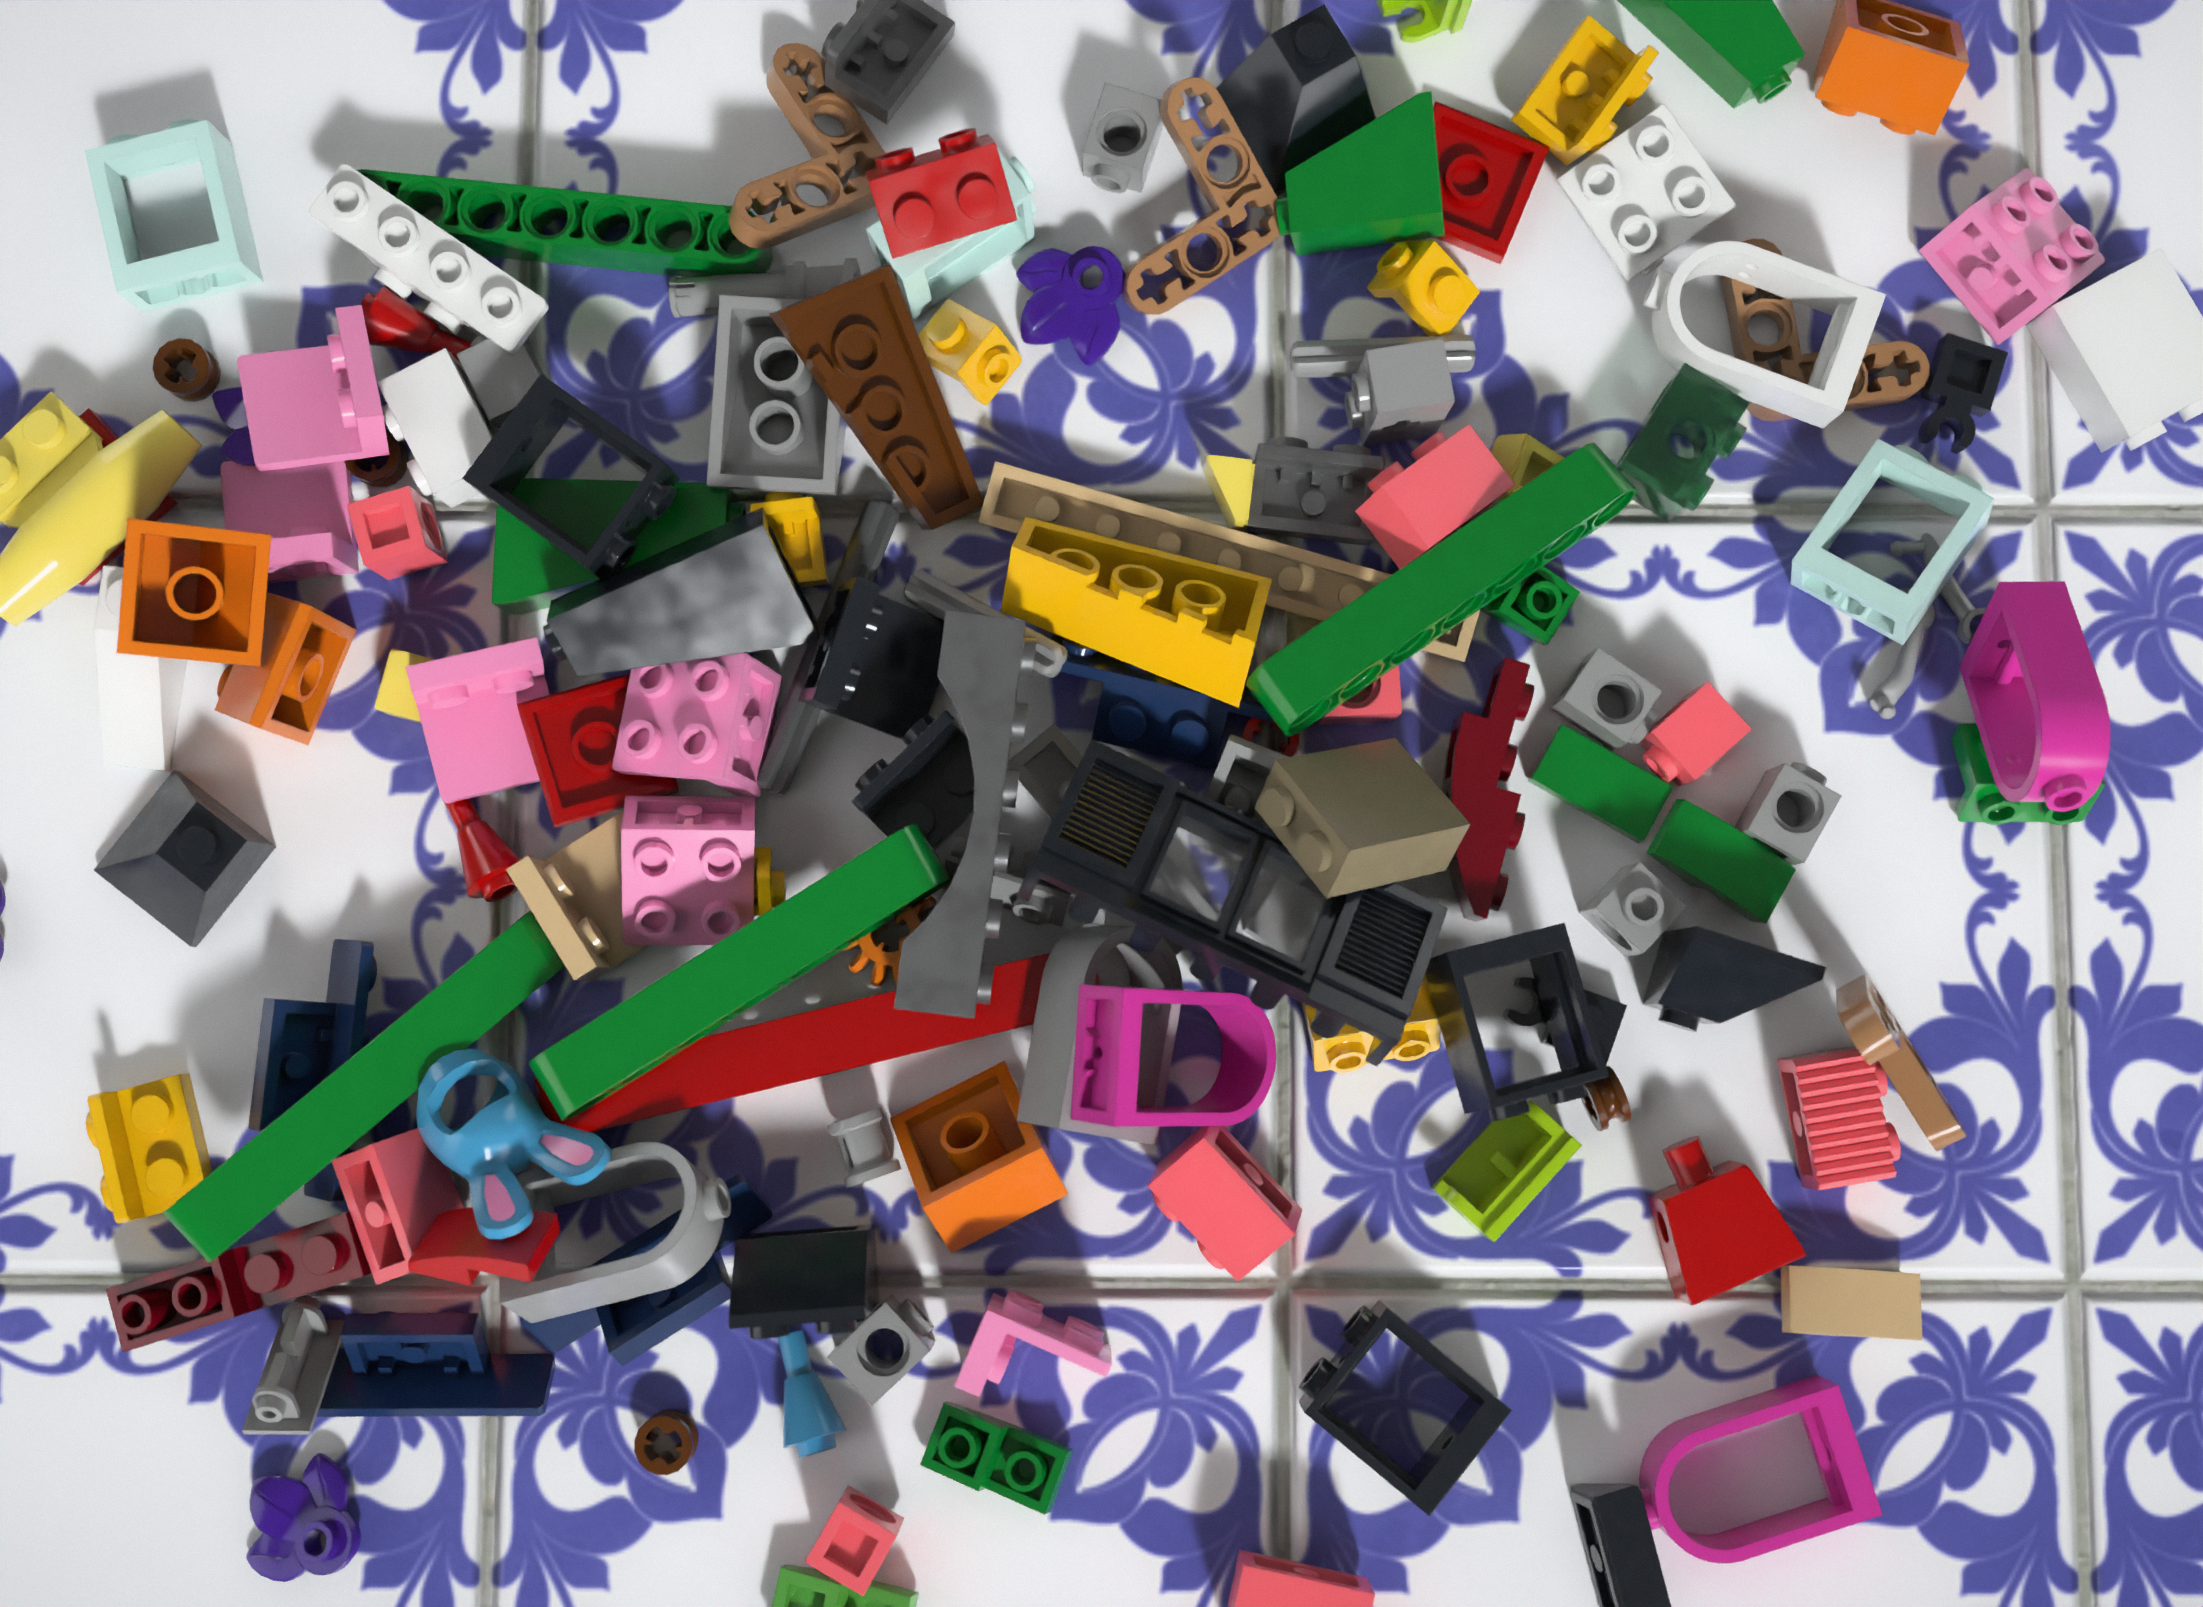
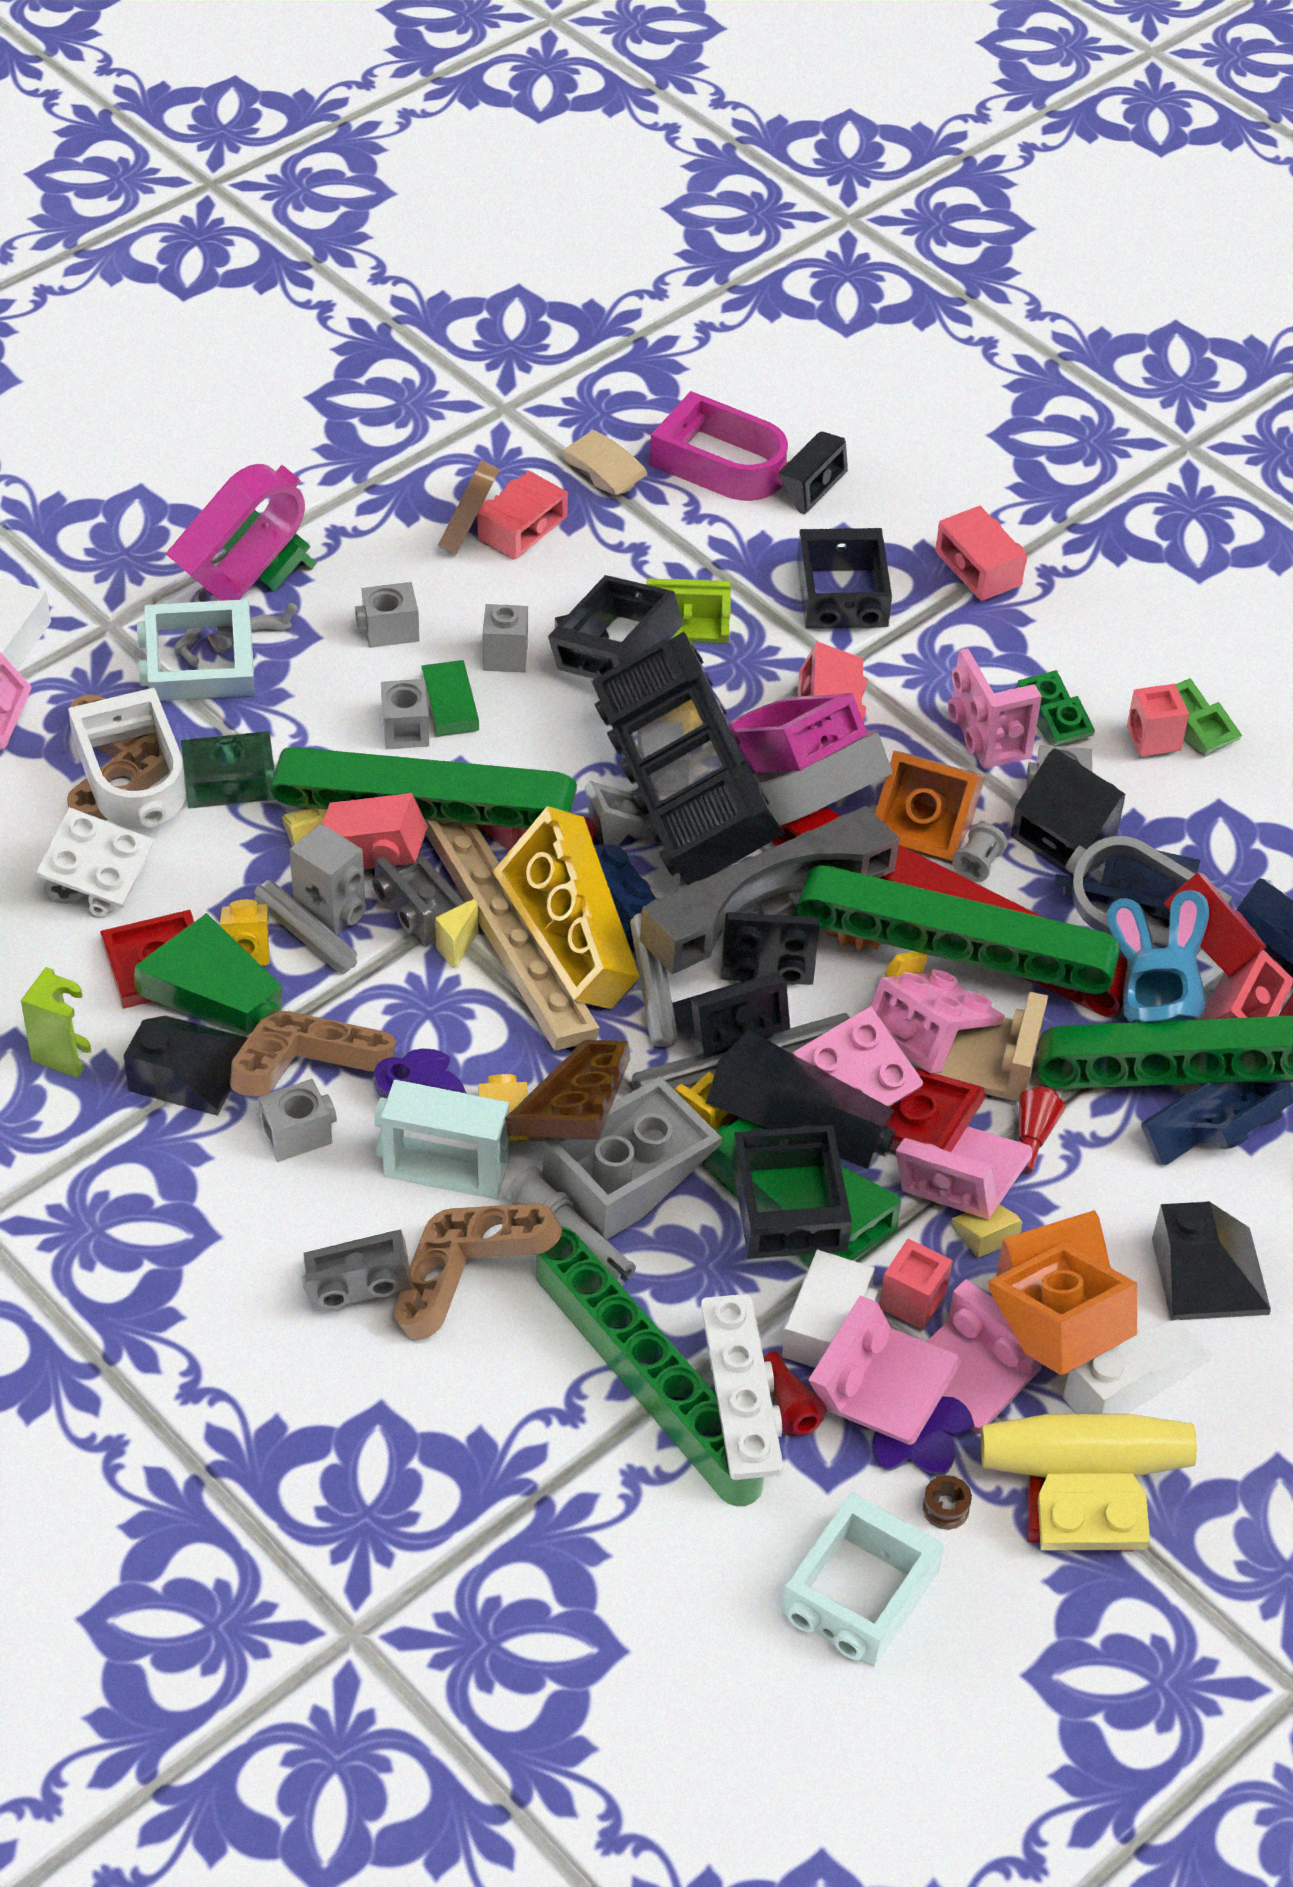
camera: 135 degrees left, 35 degrees down
(499, 376) = (773, 1303): light grey brick -> none
(667, 1421) = (1215, 826): reddish brown bush -> none
(808, 1411) = (1134, 780): dark azure cone -> none
(940, 192) = (439, 1107): bracket -> none
(1361, 816) = (586, 735): dark tan brick -> none
(1474, 763) = (517, 731): dark red slope -> none
(1583, 91) = (51, 926): yellow bracket -> none
(1692, 736) = (384, 662): coral brick -> none
(1717, 1225) = (626, 523): red torso -> none
(1719, 977) = (500, 576): black slope -> none
(1722, 859) = (441, 626): green slope -> none
(1962, 383) = (71, 680): black plate -> none

